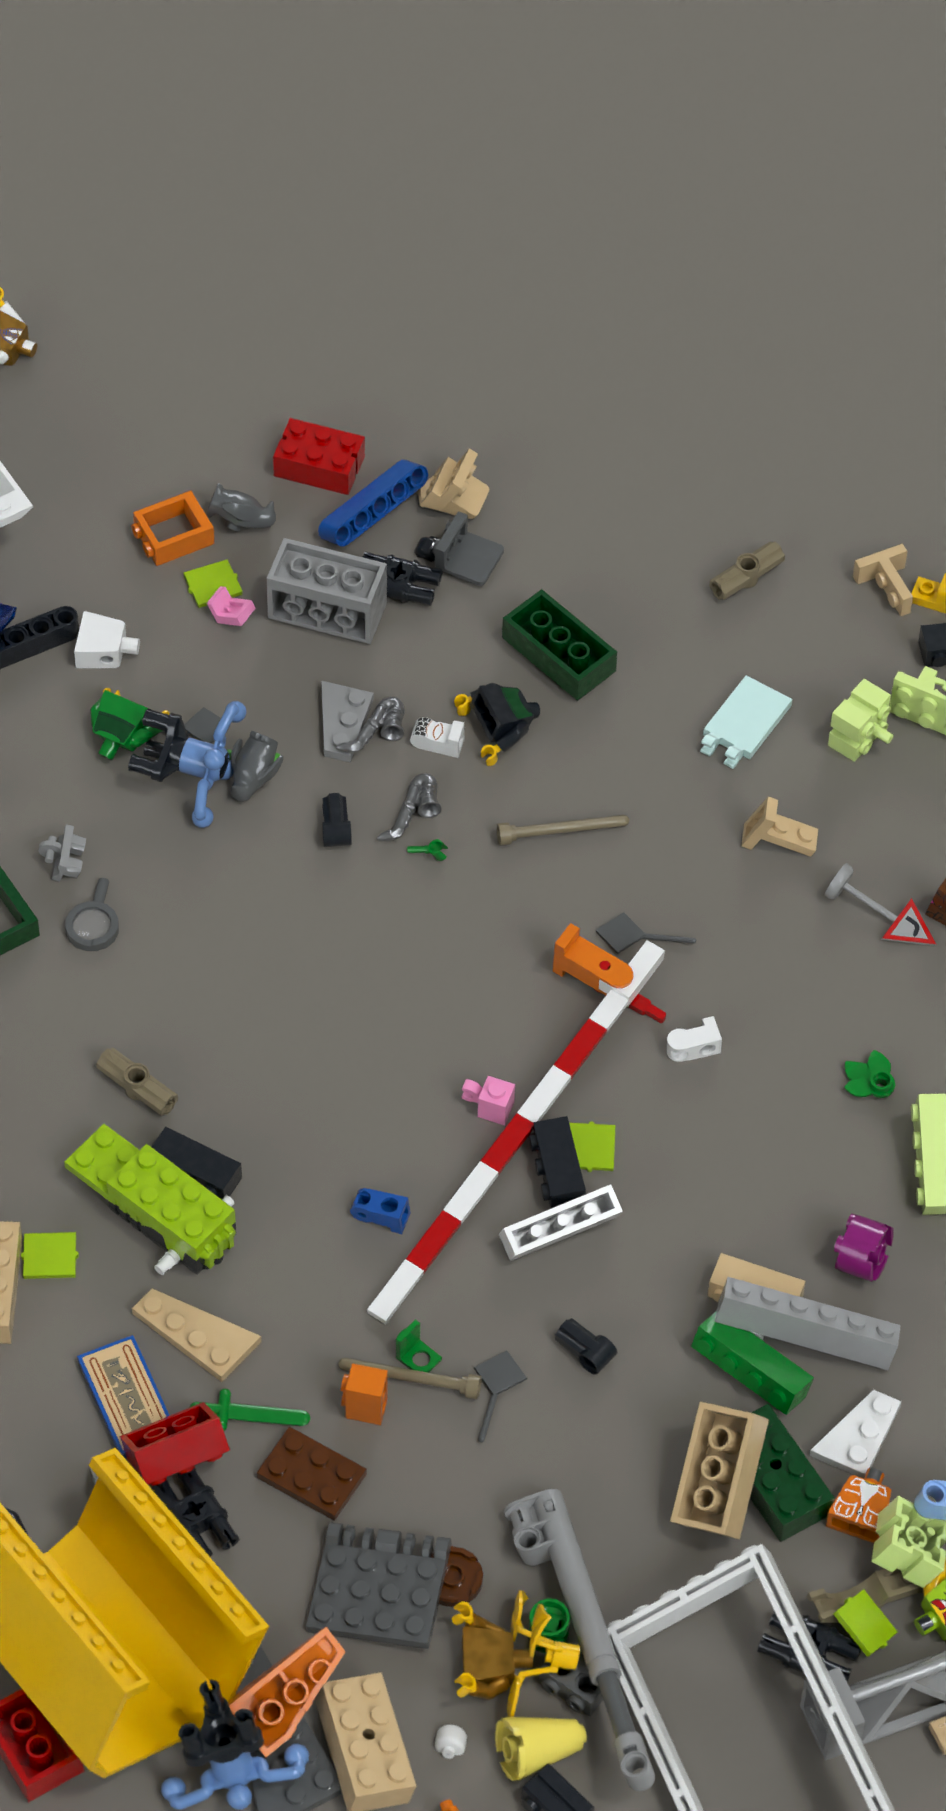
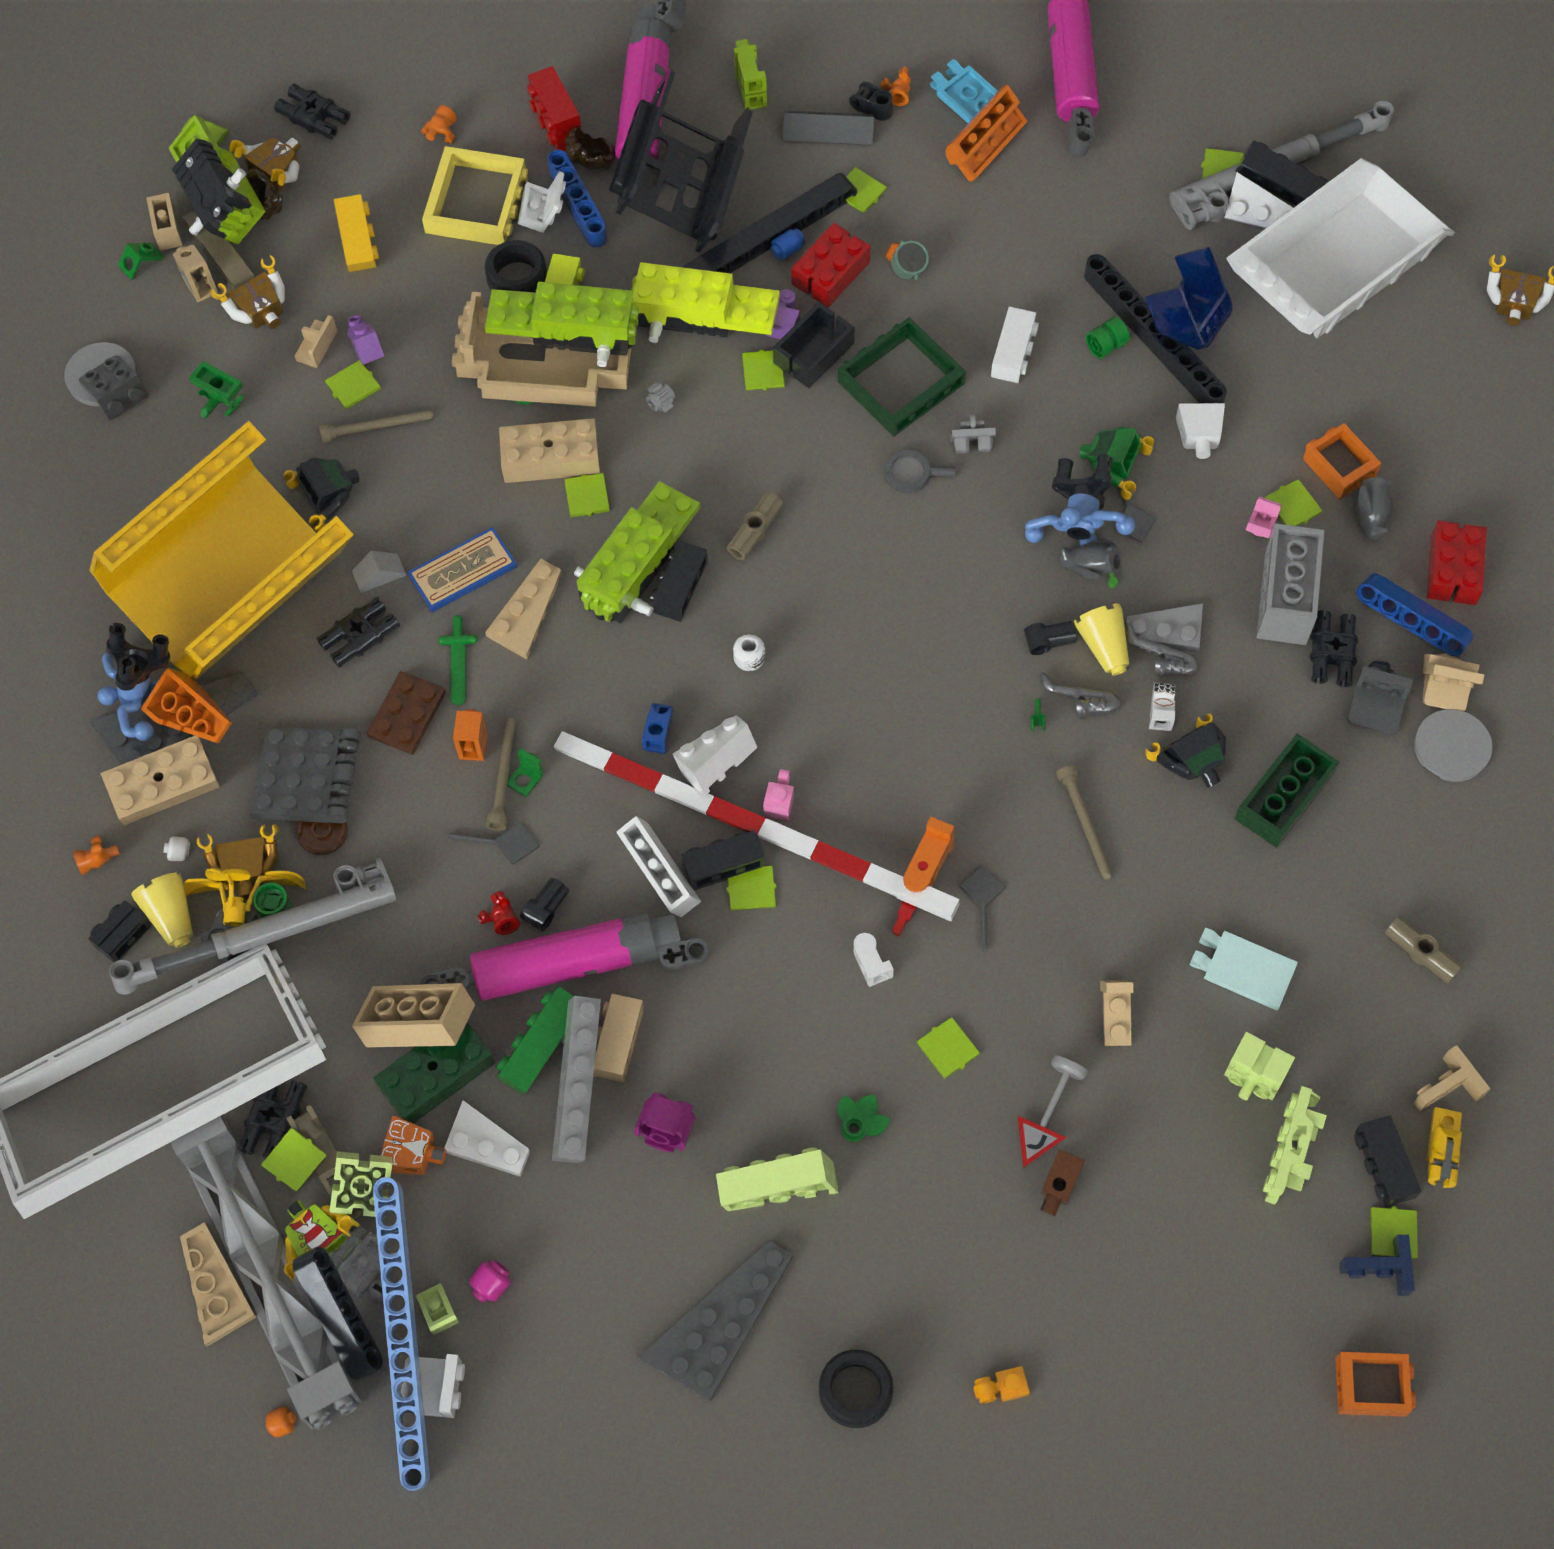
camera: 85 degrees right, 10 degrees up
(175, 1444) = (408, 601): red brick -> none
(305, 1104) = (749, 652): none -> white head
(350, 768) = (1106, 637): none -> light yellow cone
(432, 1152) = (714, 753): none -> white wedge
(524, 505) = (1453, 745): none -> light grey tile
(589, 1391) = (502, 915): none -> red piece
(659, 1320) = (574, 955): none -> dark pink piece
(799, 990) = (948, 1048): none -> lime piece

